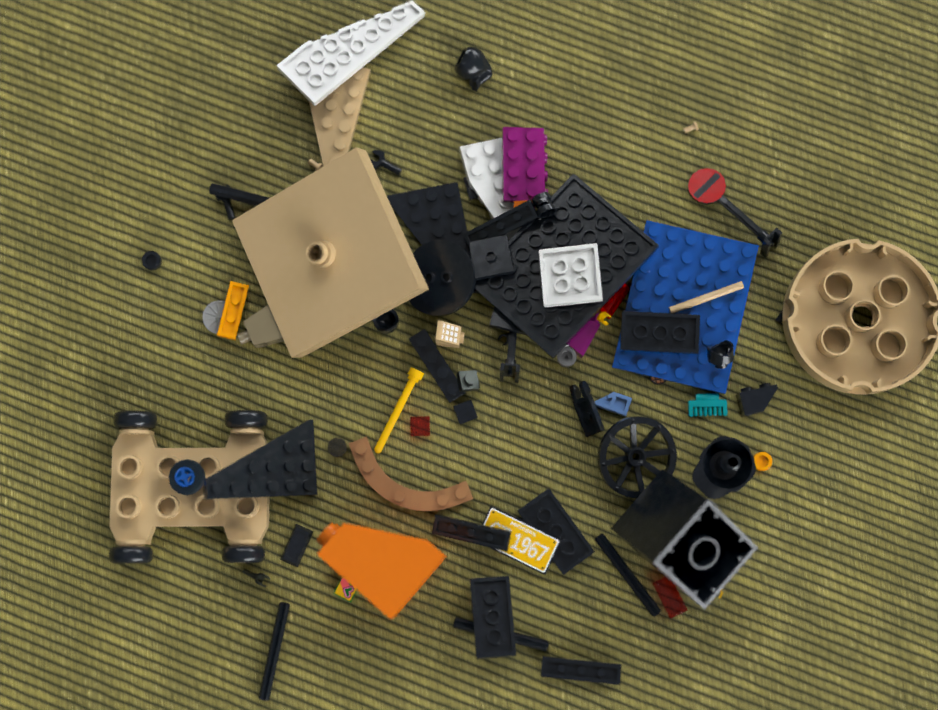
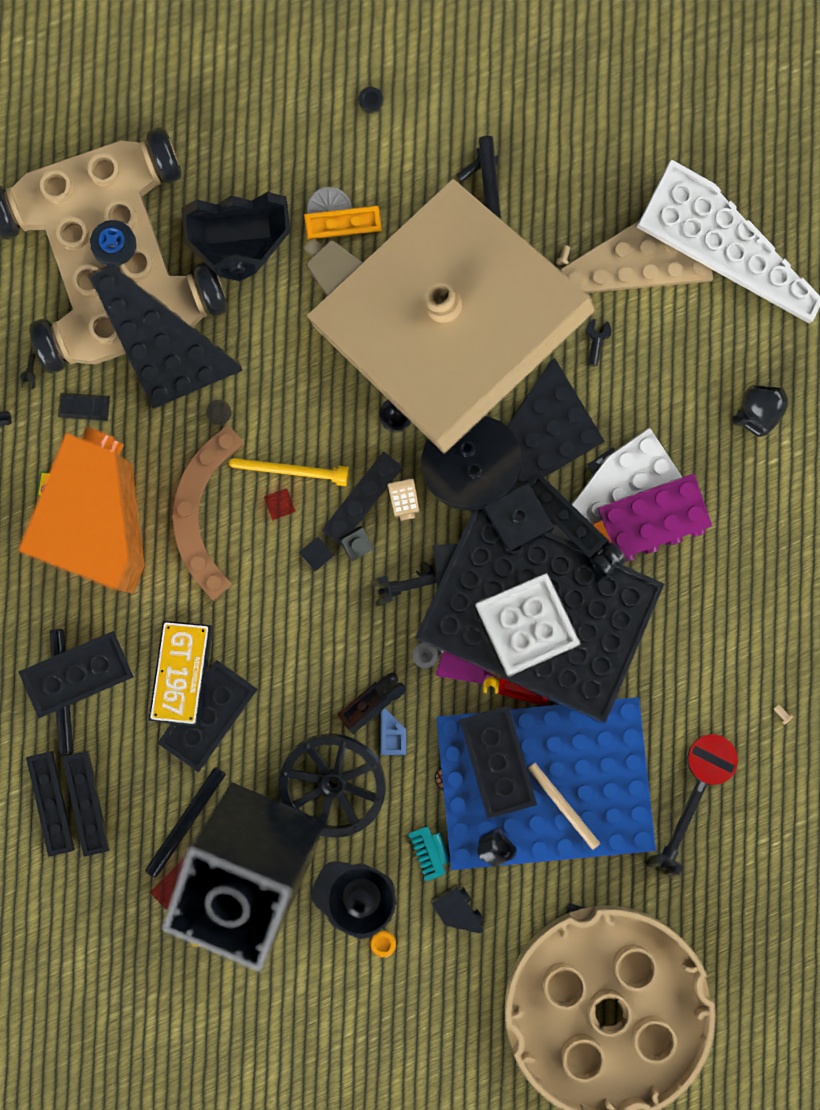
camera: 70 degrees right, 5 degrees up
(212, 387) = (236, 233): none -> black panel
(471, 532) = (170, 613): black tile -> none
(589, 643) = (86, 803): none -> black plate

